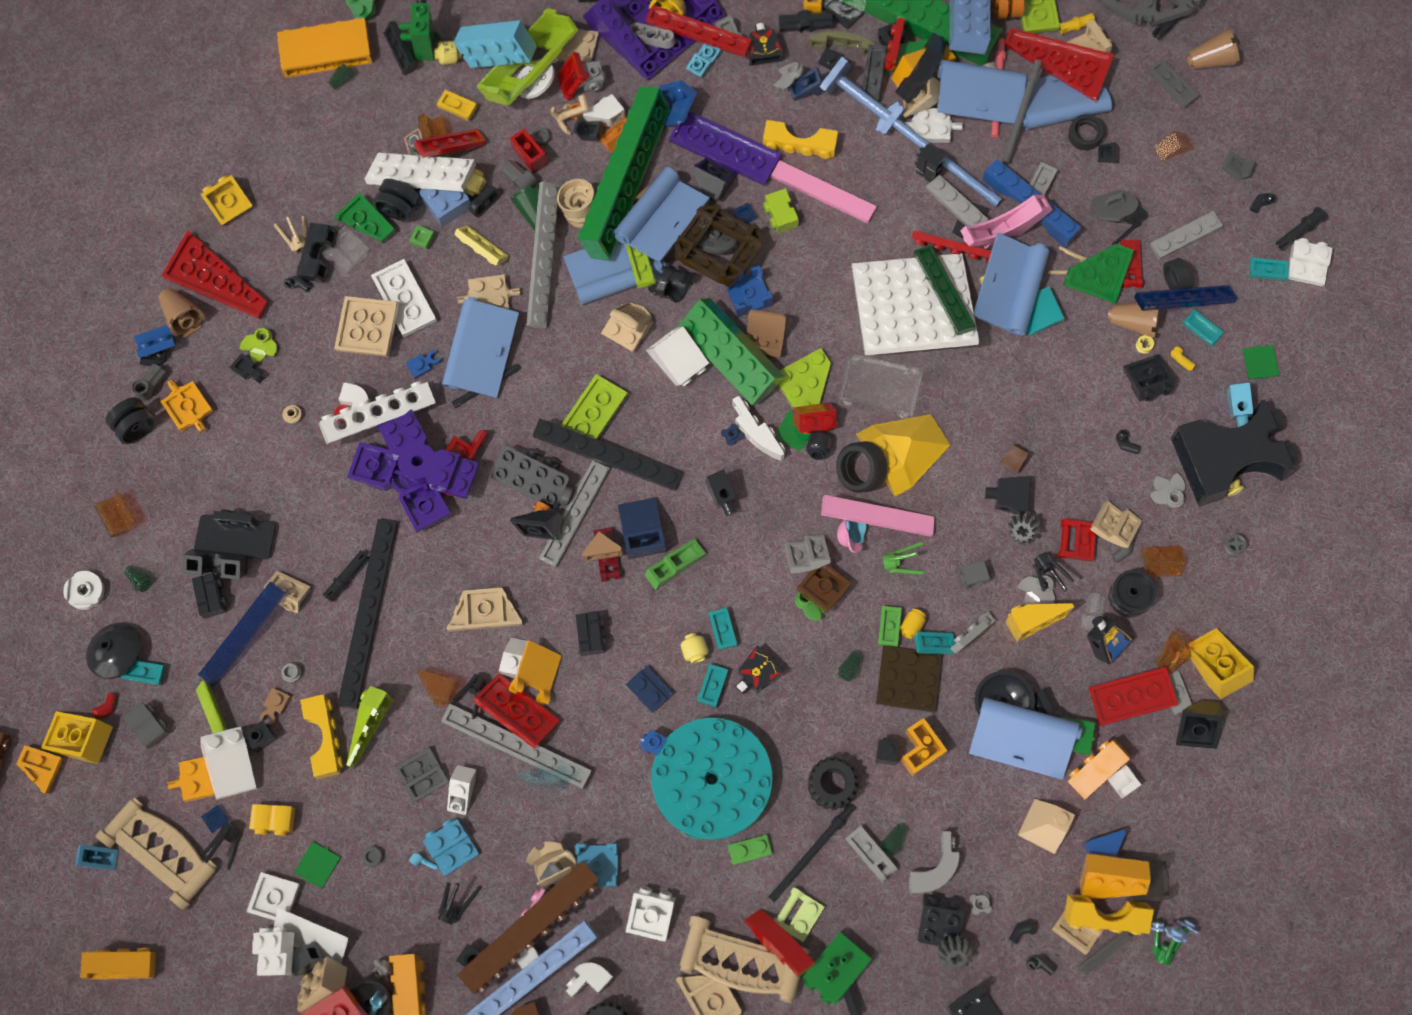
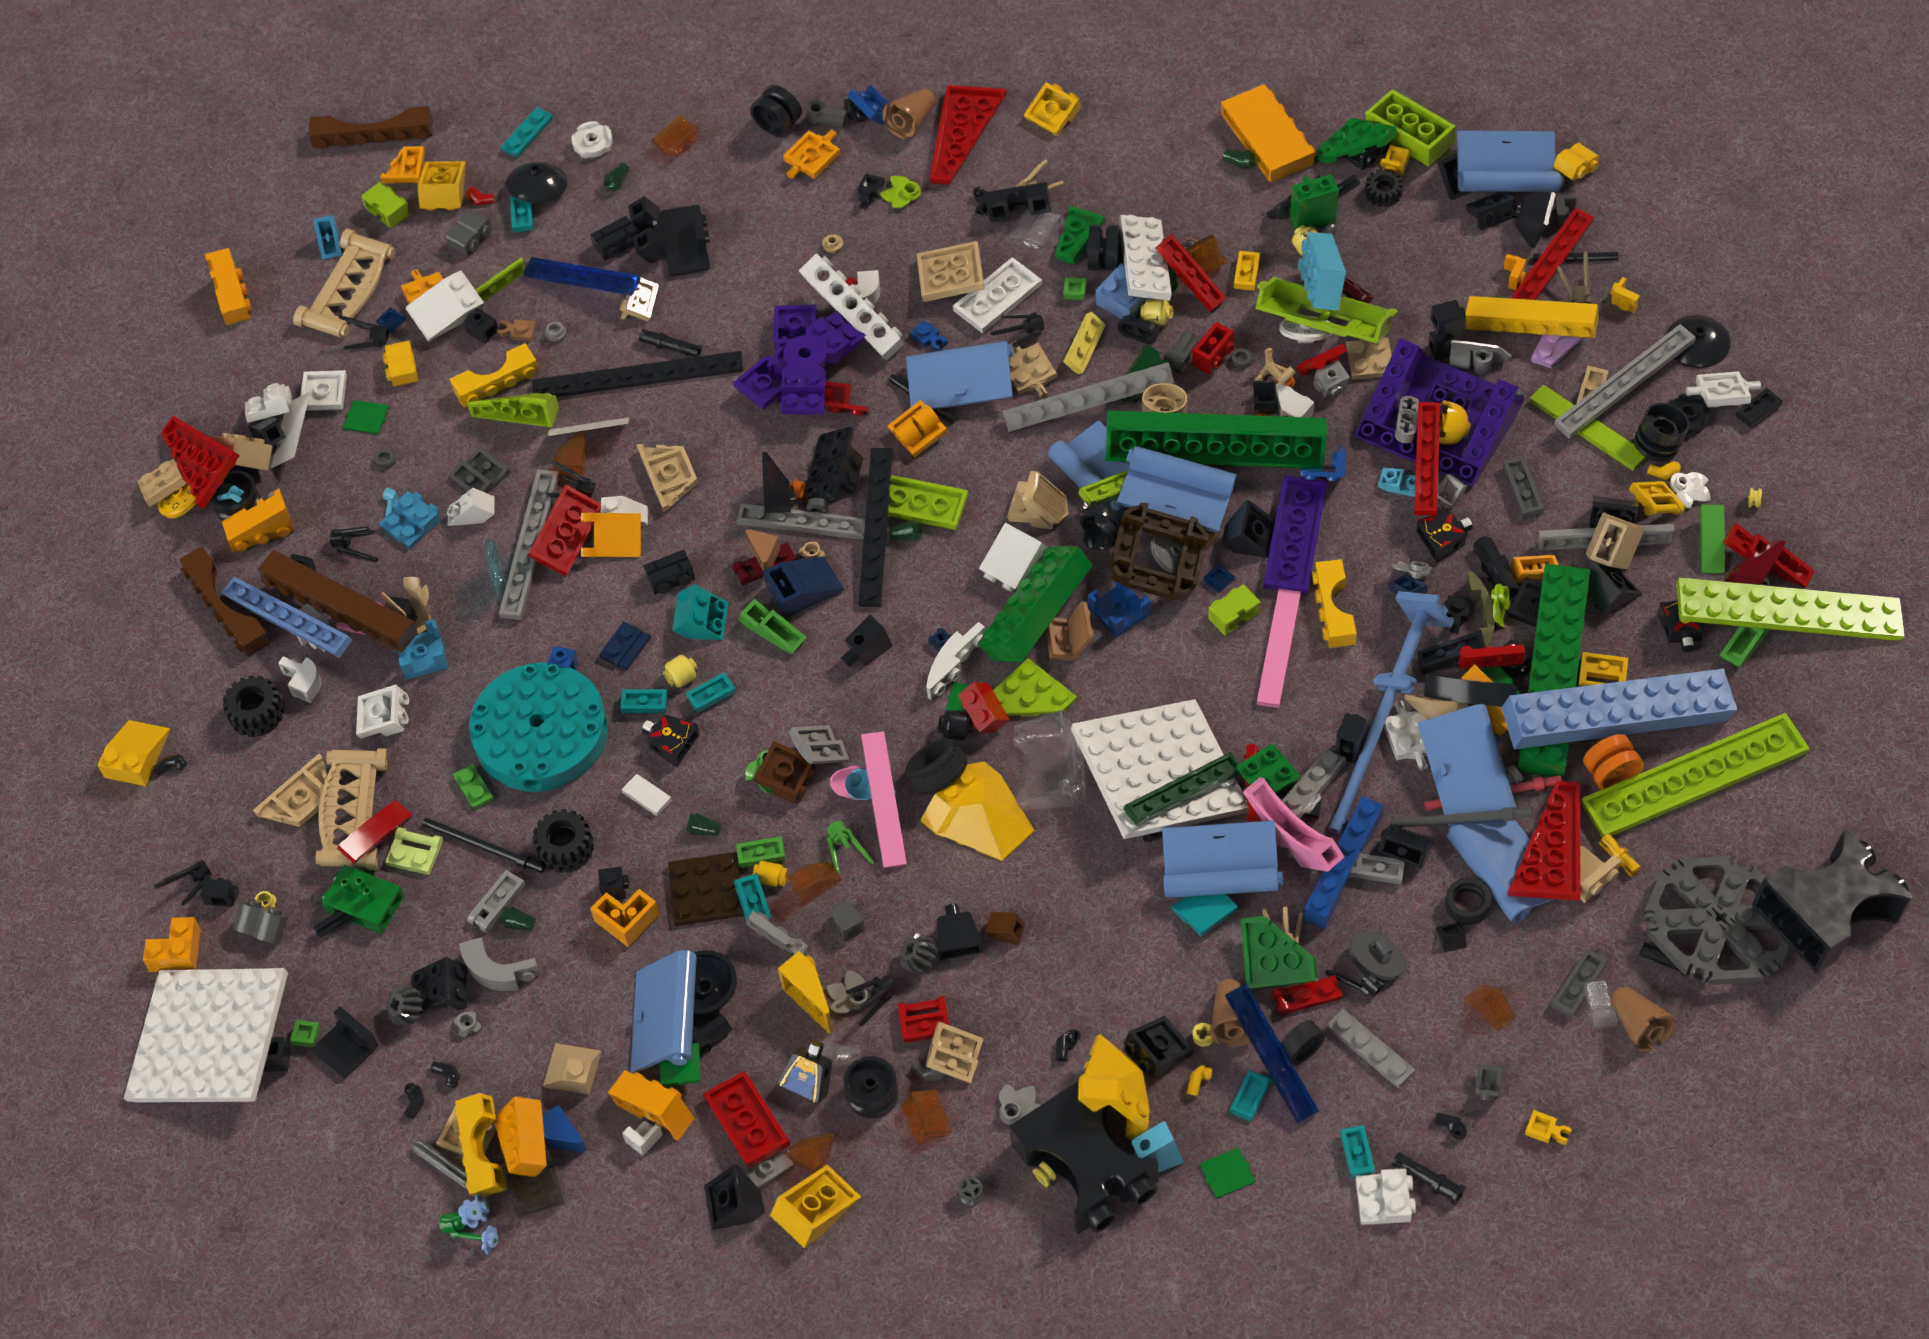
camera: 75 degrees right, 15 degrees down
(47, 647) = (527, 132): none -> teal plate
(74, 796) = (384, 202): none -> lime brick
(411, 666) = (588, 426): none -> white sticker
(446, 279) = (1033, 324): none -> black plant
(518, 396) = (917, 428): none -> light orange plate
(604, 510) = (811, 547): none -> tan plate
(617, 432) = (906, 531): none -> clear green cone
(643, 619) = (700, 614): none -> teal slope
(804, 705) = (646, 795): none -> white tile
(841, 24) = (1501, 601): none -> lime plate
(930, 591) = (812, 880): none -> clear orange slope
(941, 228) = (1271, 766): none -> green bracket
(1030, 157) = (1405, 846): none -> black brick
(1191, 408) = (1117, 1081): none -> yellow wedge
(1201, 76) = (1600, 1009): none -> clear piece
(1281, 143) = (1543, 1128): none -> yellow plate

